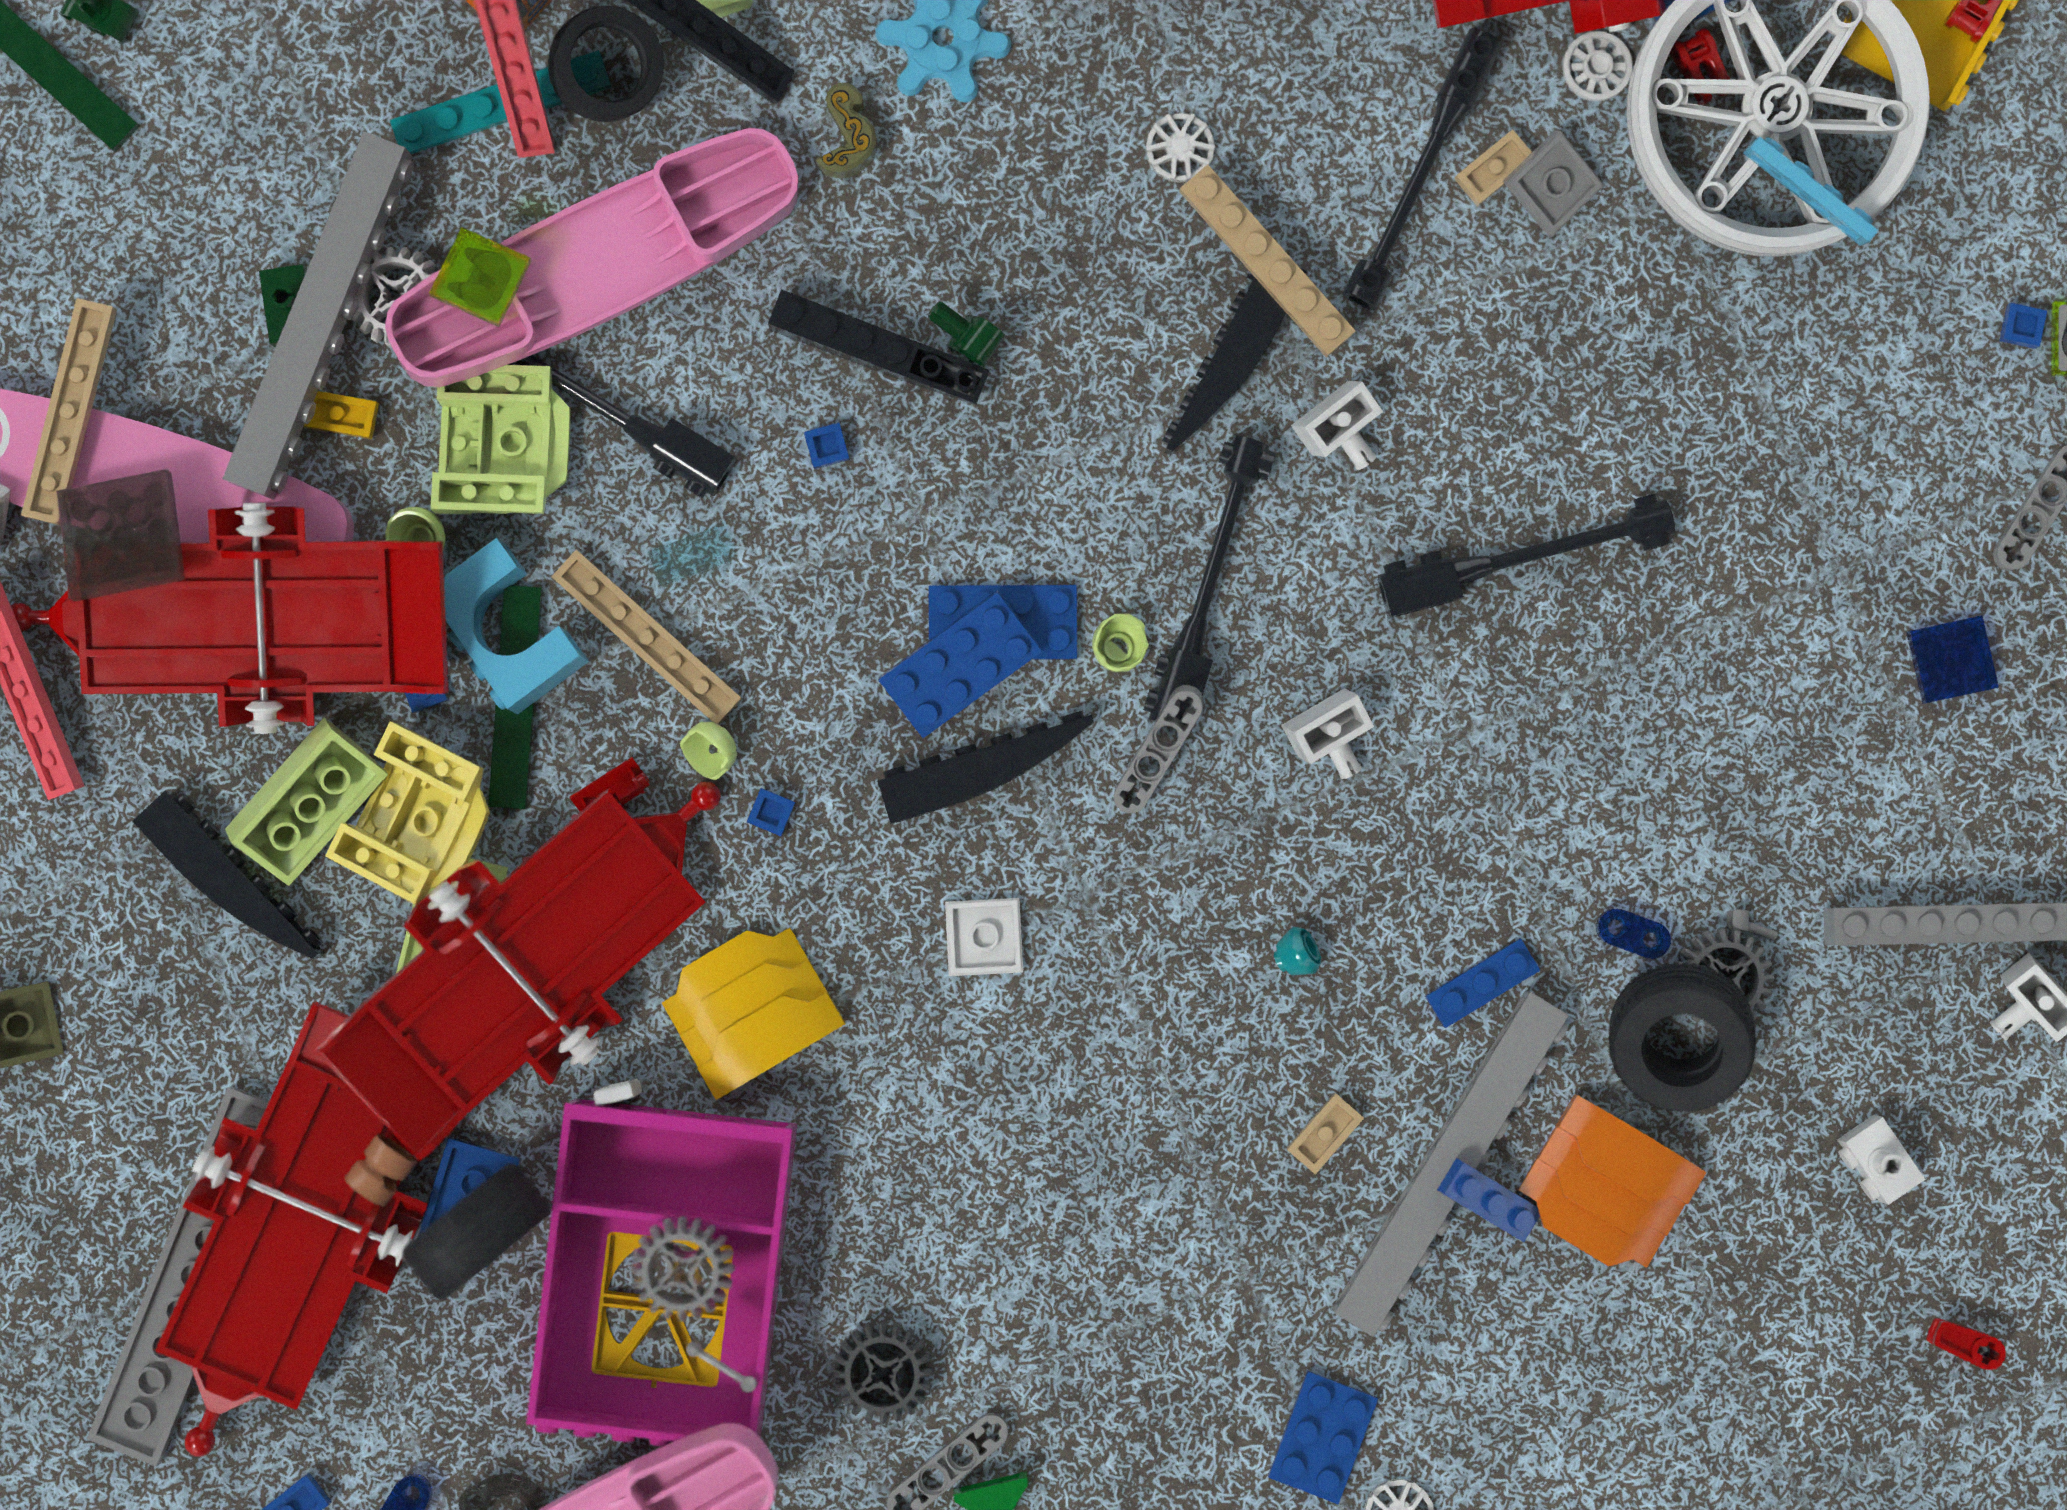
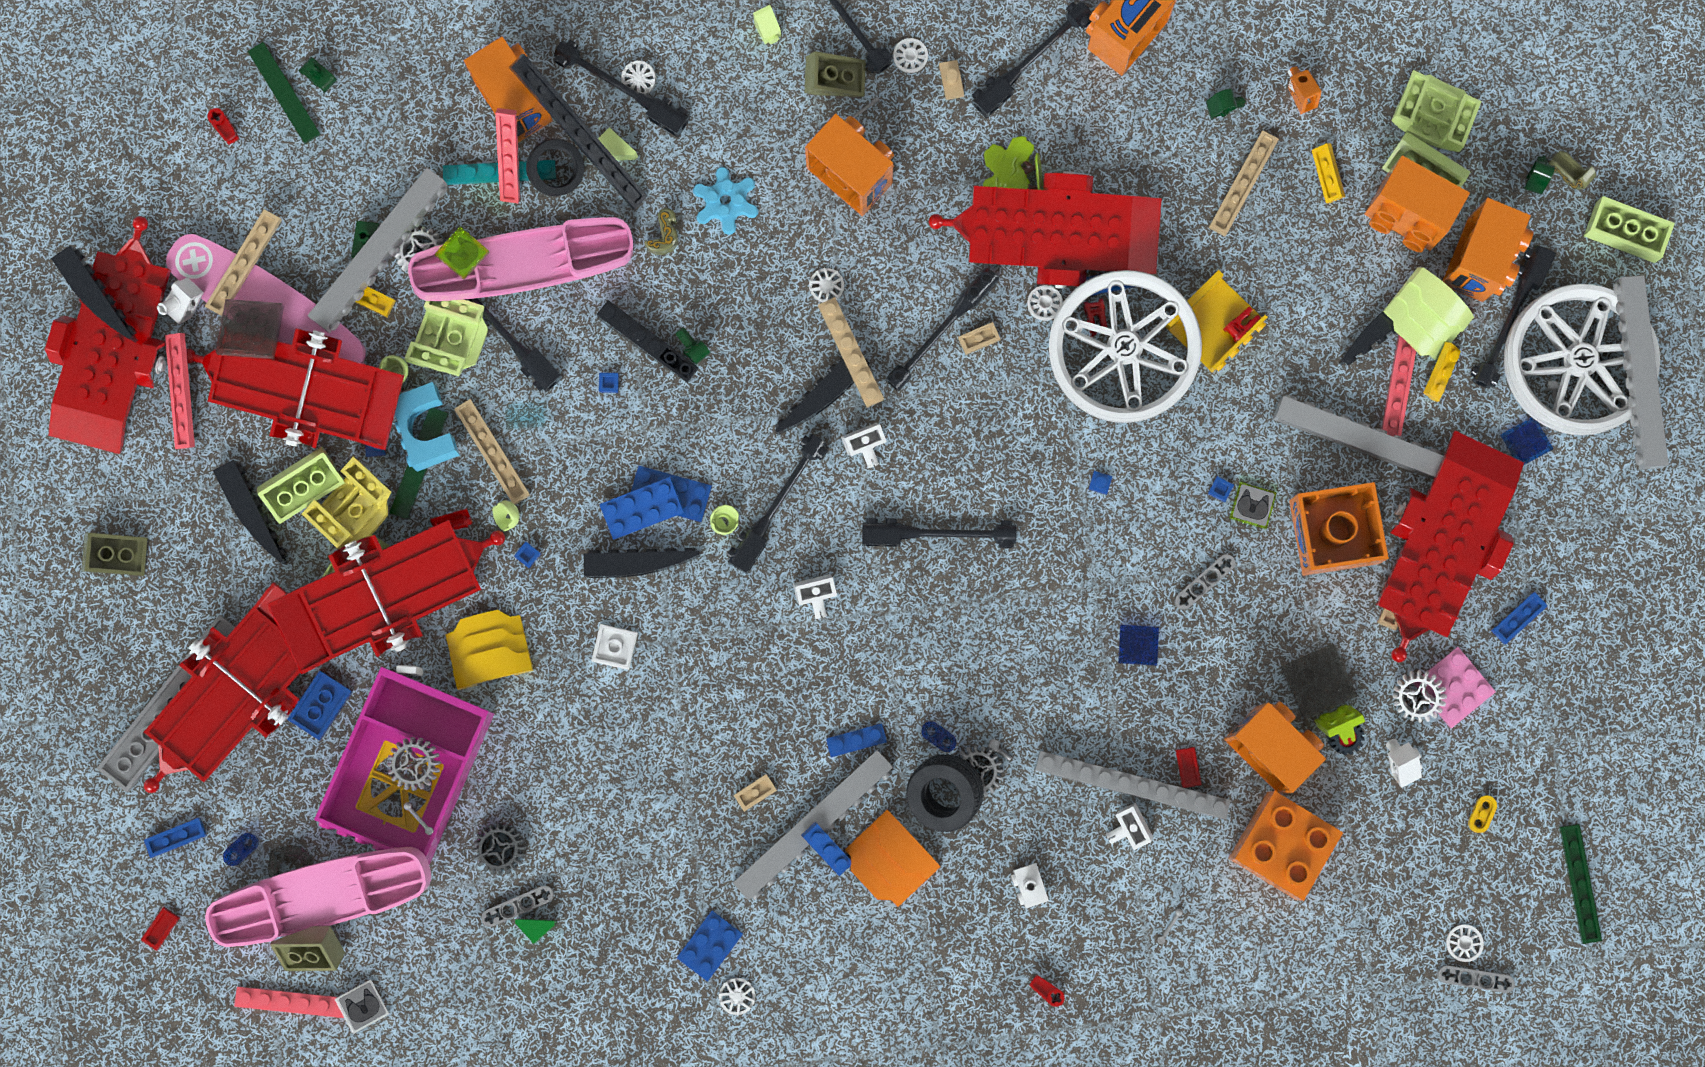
camera: 20 degrees right, 5 degrees down
(378, 1173) = (281, 674): nougat wheel -> none
(476, 1231) = (318, 716): black tyre -> none
(1160, 750) = (727, 577): light grey beam -> none
(1297, 952) = (767, 698): teal cone -> none
(1553, 182) = (1005, 354): light grey tile -> none
(1796, 376) = (1100, 483): none -> blue plate
(1799, 180) = (1131, 397): medium azure plate -> none

